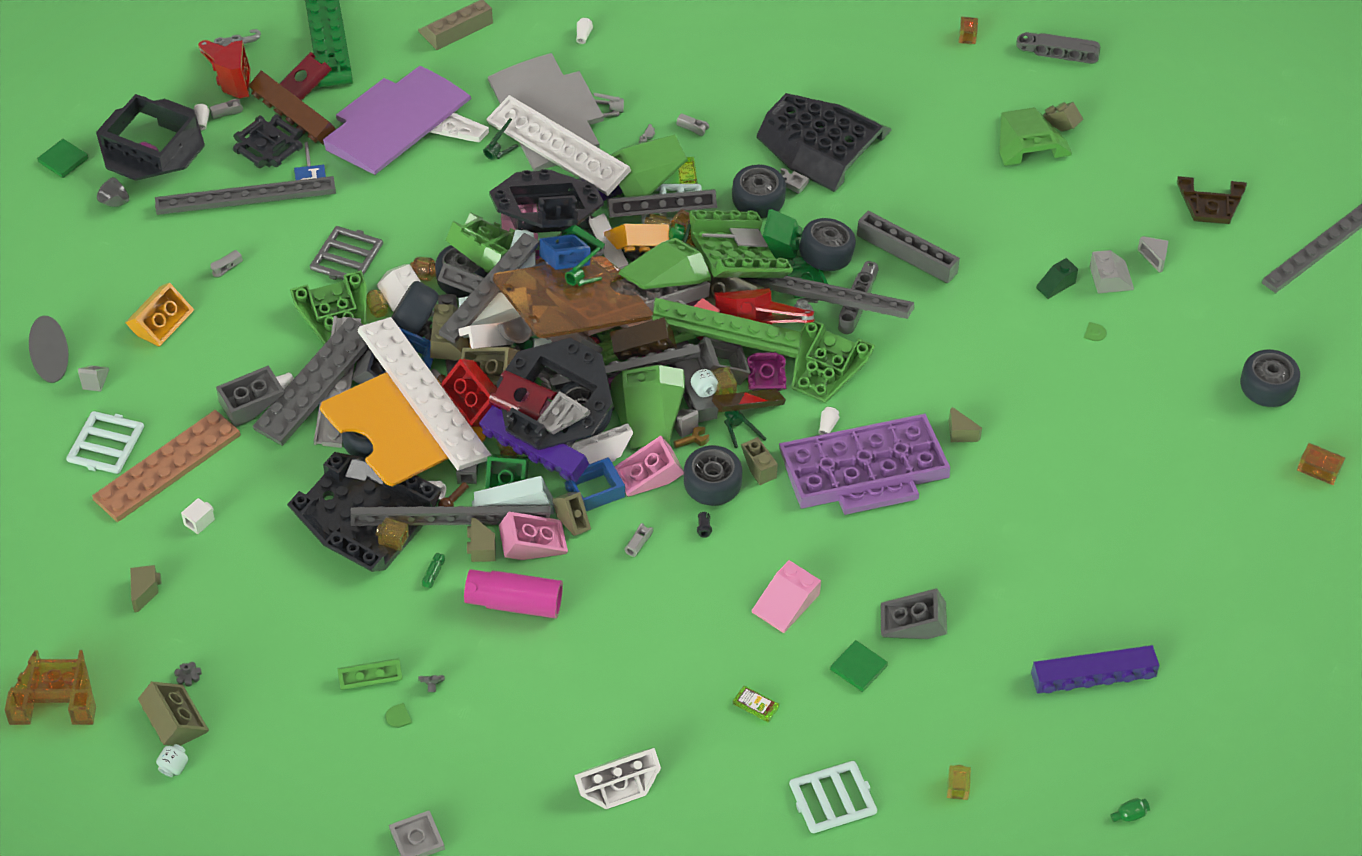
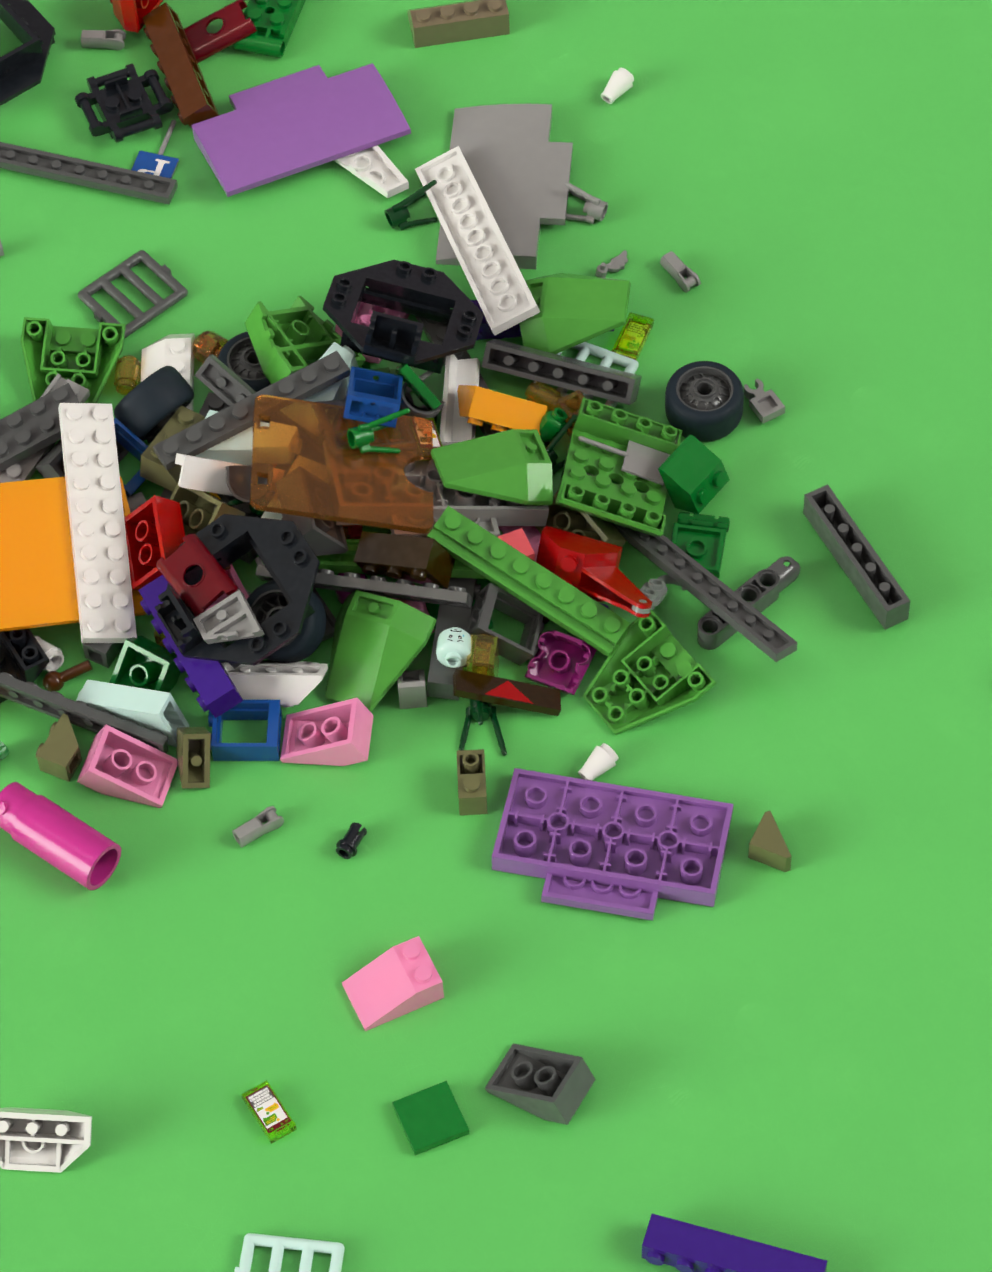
camera: 30 degrees right, 5 degrees up
(202, 114) = (67, 37): white cone -> none
(700, 440) = (414, 716): pearl gold bar -> none
(712, 475) = (397, 778): black wheel -> none
(816, 151) = (824, 375): black wedge -> none
(827, 244) = (746, 512): black wheel -> none

